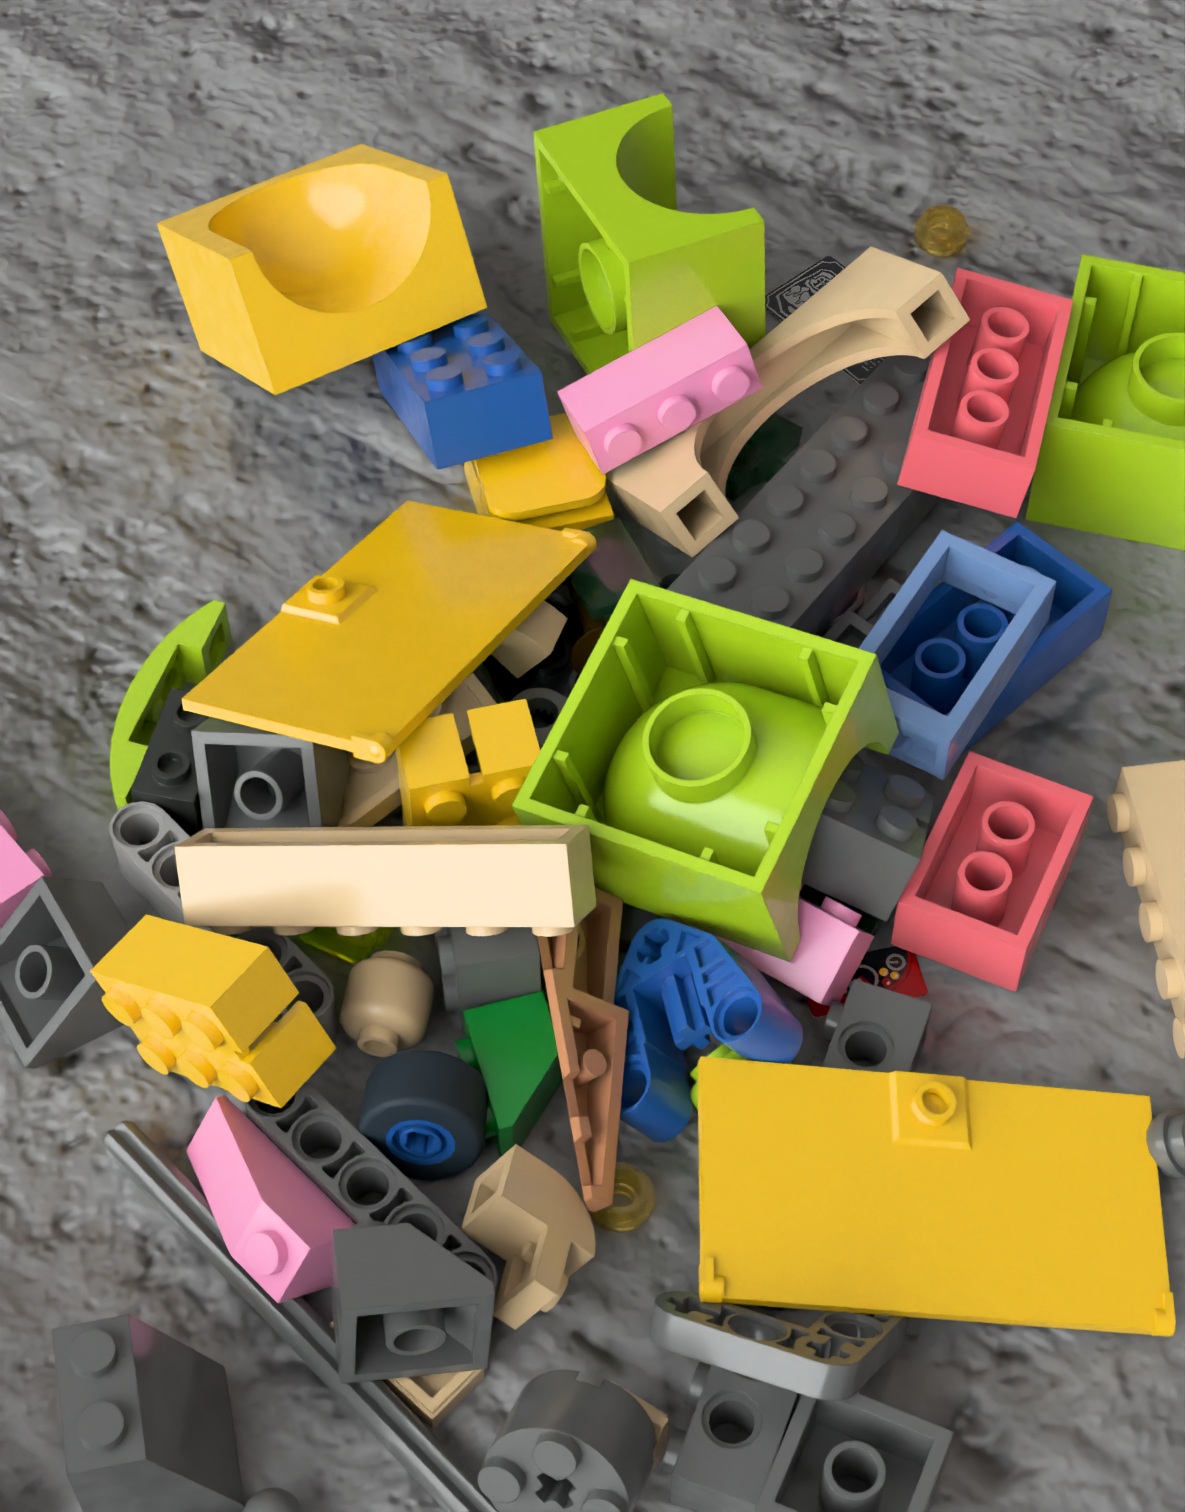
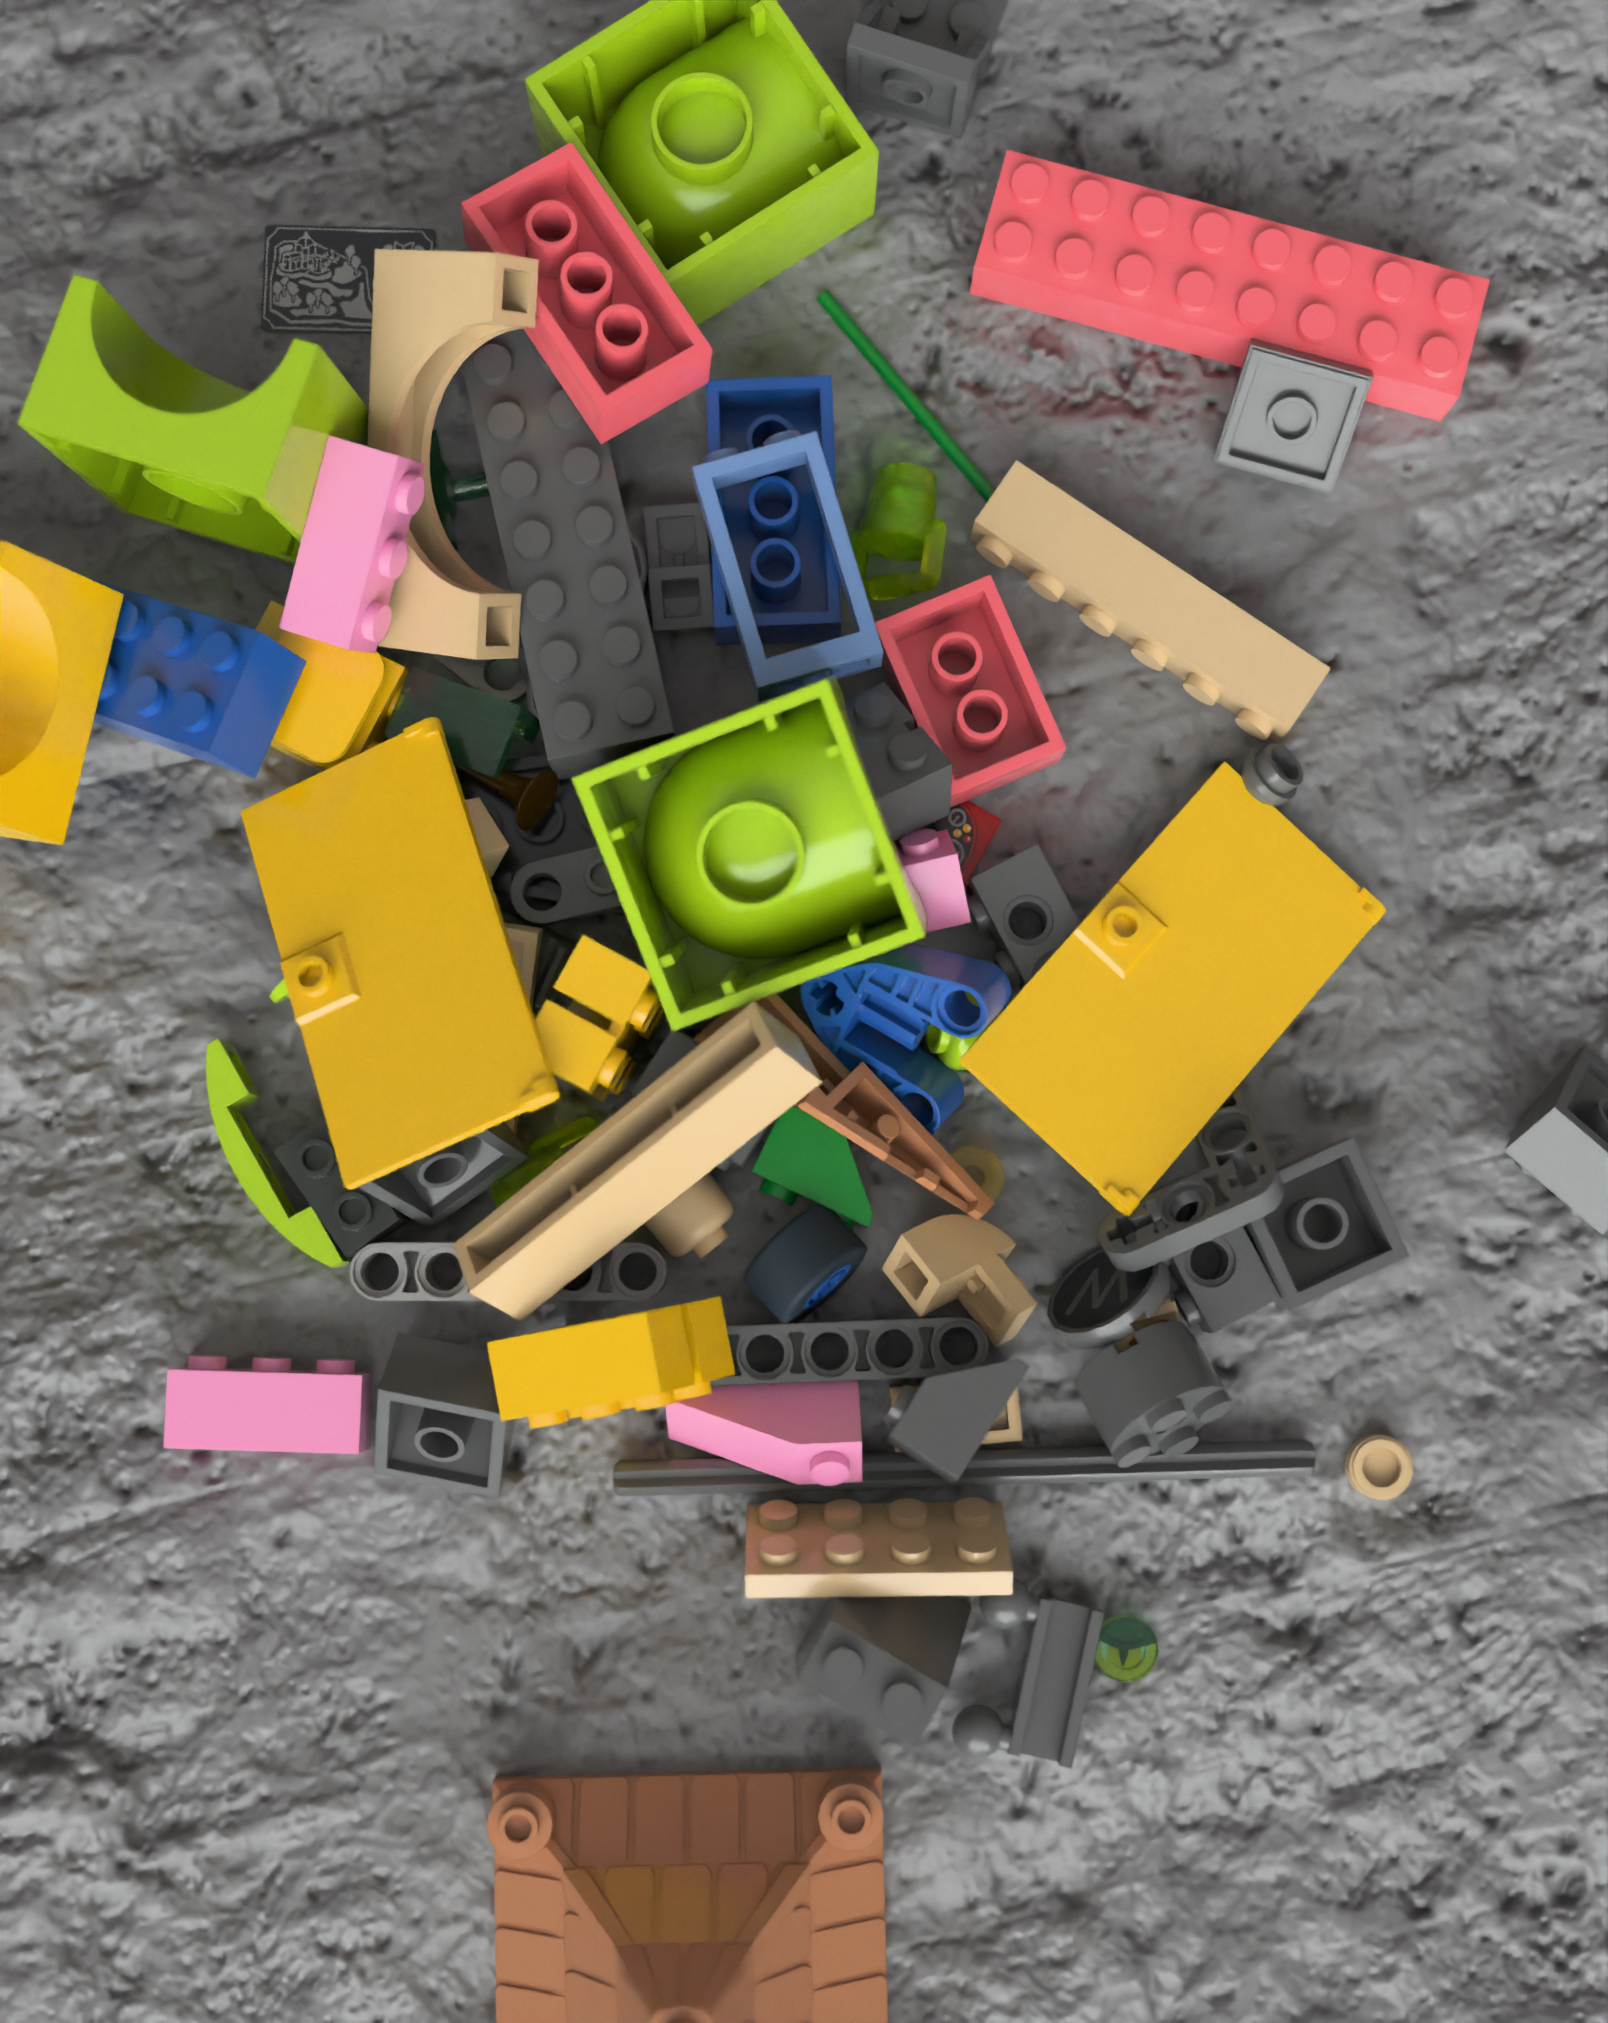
camera: 50 degrees left, 30 degrees up
(223, 1350) = (877, 1549): none -> tan plate
(624, 1363) = (1100, 1302): none -> tile
(941, 231) = (332, 101): clear yellow plate -> none
(1060, 734) = (901, 527): none -> clear neon green piece
(1163, 669) = (906, 395): none -> green axle

